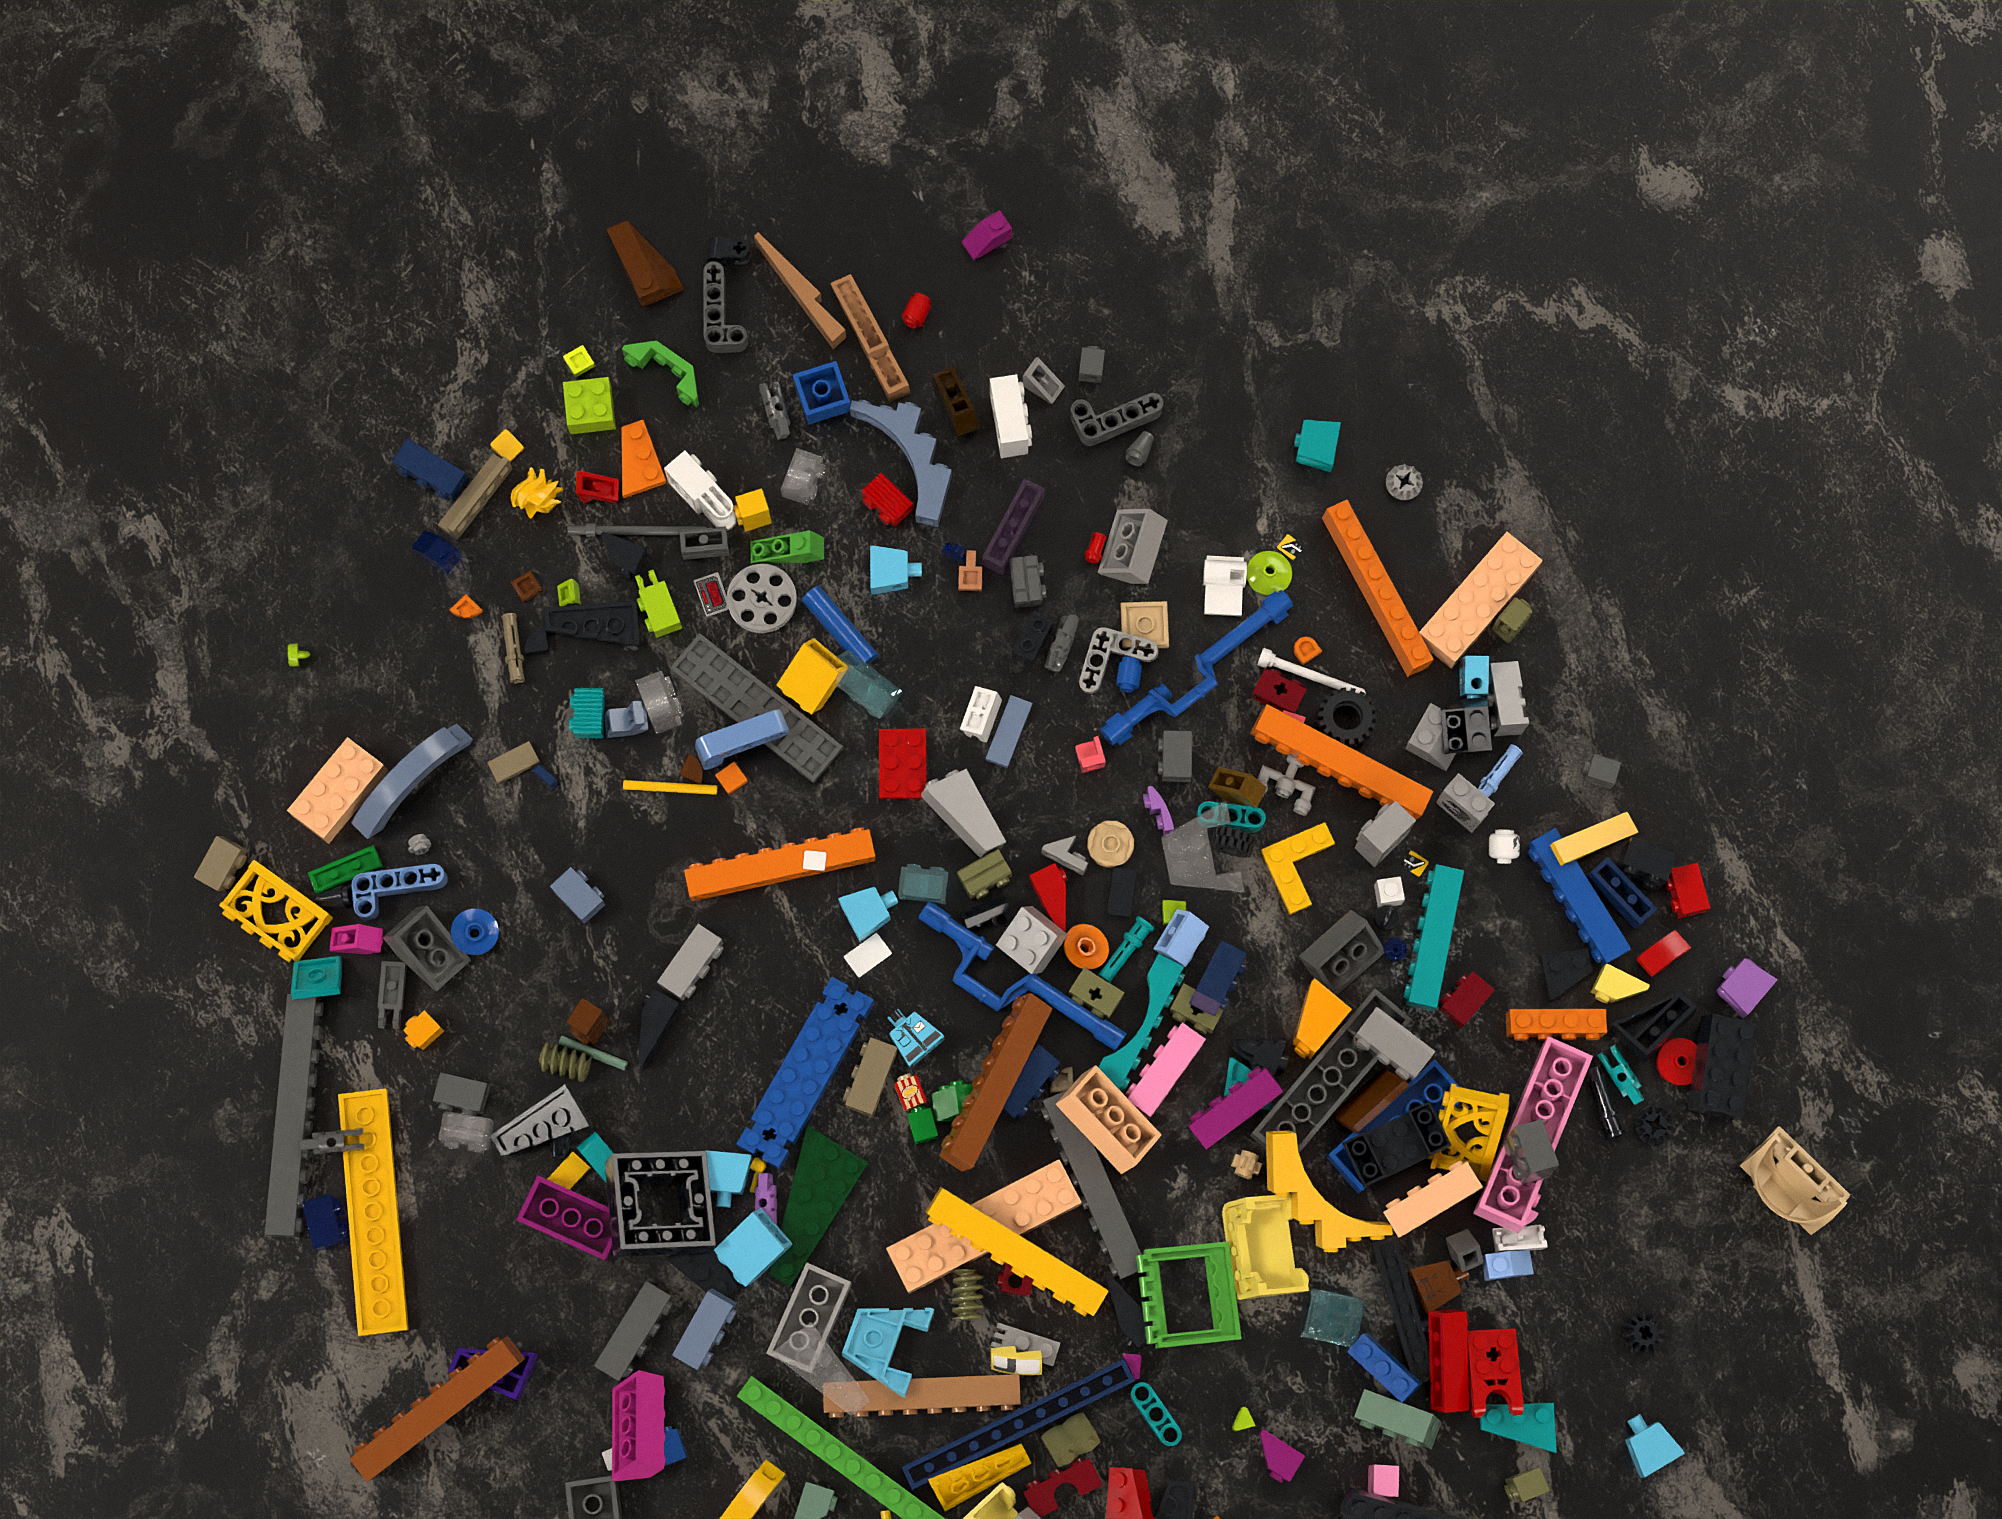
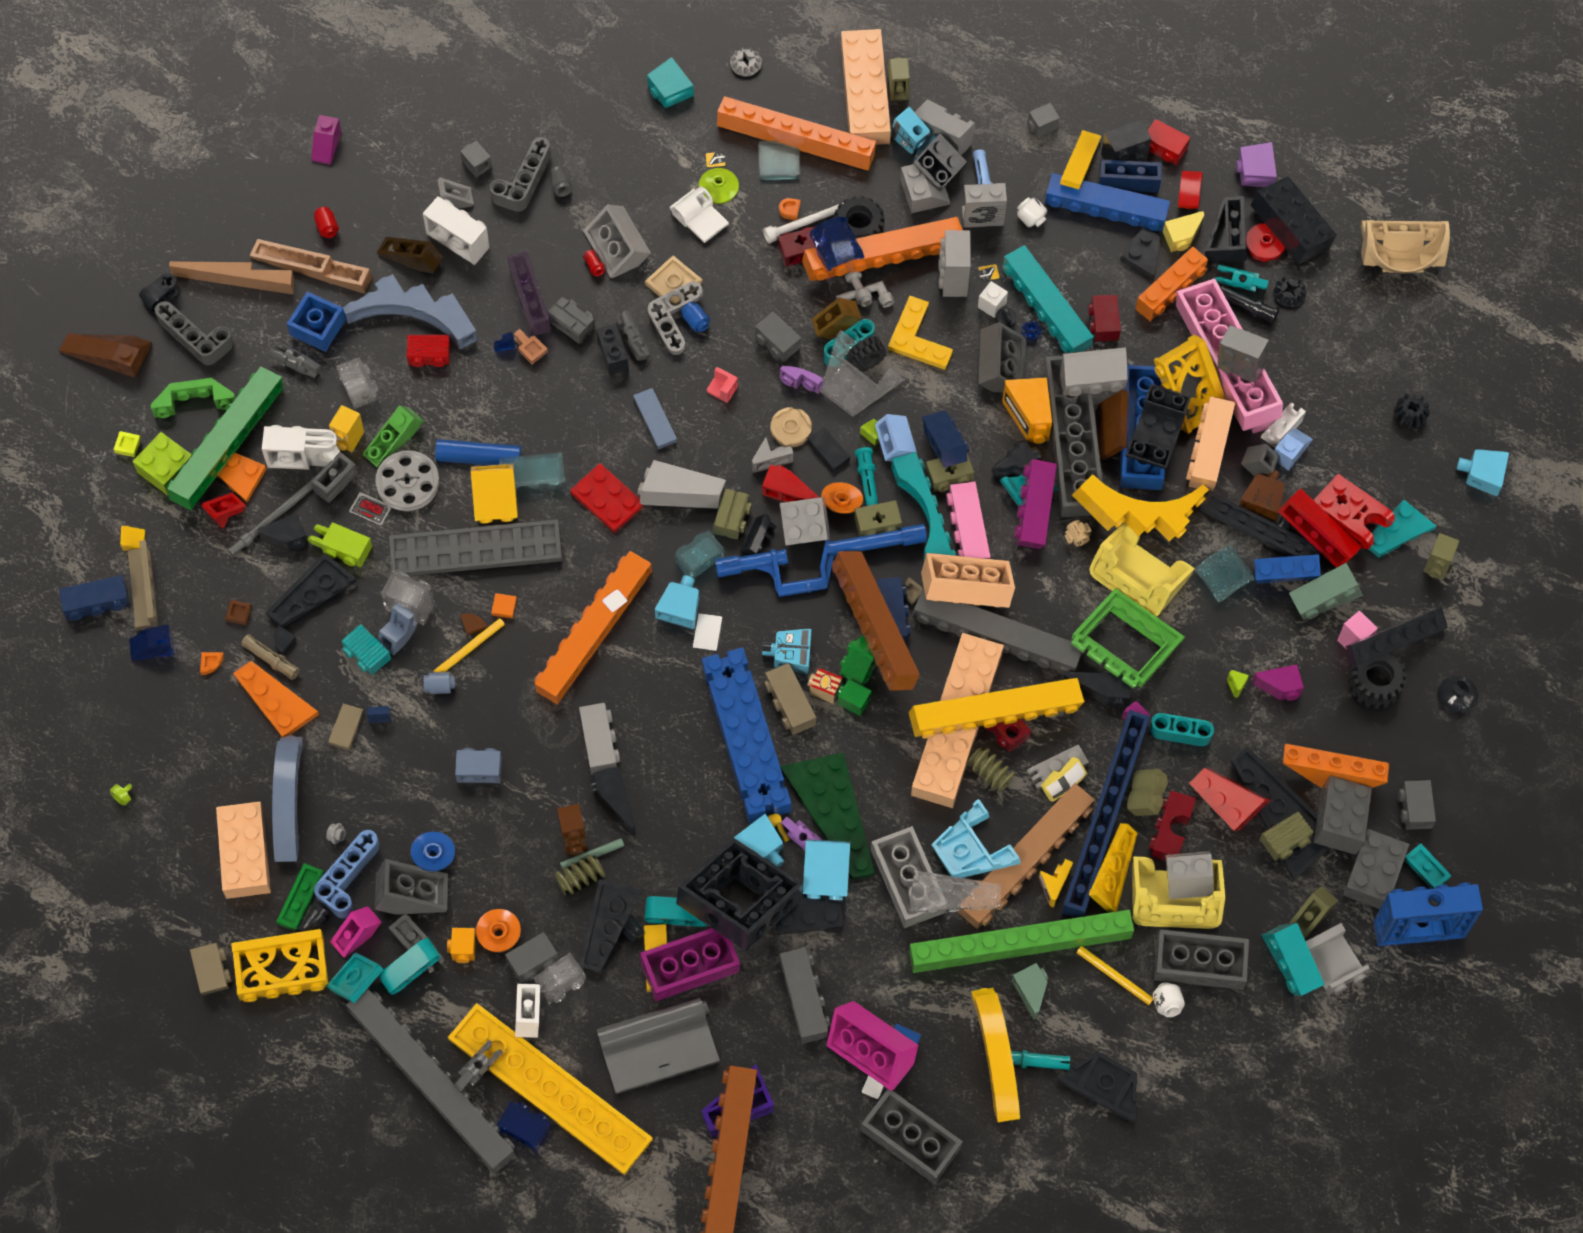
camera: 45 degrees left, 10 degrees down
(364, 1009) = (409, 966): none -> teal beam
(413, 1134) = (527, 1010): none -> white brick
(450, 1038) = (498, 920): none -> orange dish
(482, 688) = (278, 703): none -> orange wing
(483, 1250) = (660, 1038): none -> dark grey door
(535, 494) = (185, 546): yellow hair -> none
(569, 593) = (271, 590): lime slope -> none
(616, 795) = (439, 683): none -> sand blue brick
(653, 428) = (225, 438): none -> brick
(705, 1329) = (849, 947): sand blue brick -> none
(739, 737) = (484, 572): medium blue beam -> none
(891, 569) = (475, 388): medium azure torso -> none
(916, 1442) = (1054, 884): none -> yellow slope
(981, 713) = (626, 421): white hinge -> none
(1119, 726) = (723, 350): blue piece -> none
(1297, 723) = (835, 243): none -> clear blue slope
(1340, 597) = (778, 160): none -> clear light blue tile

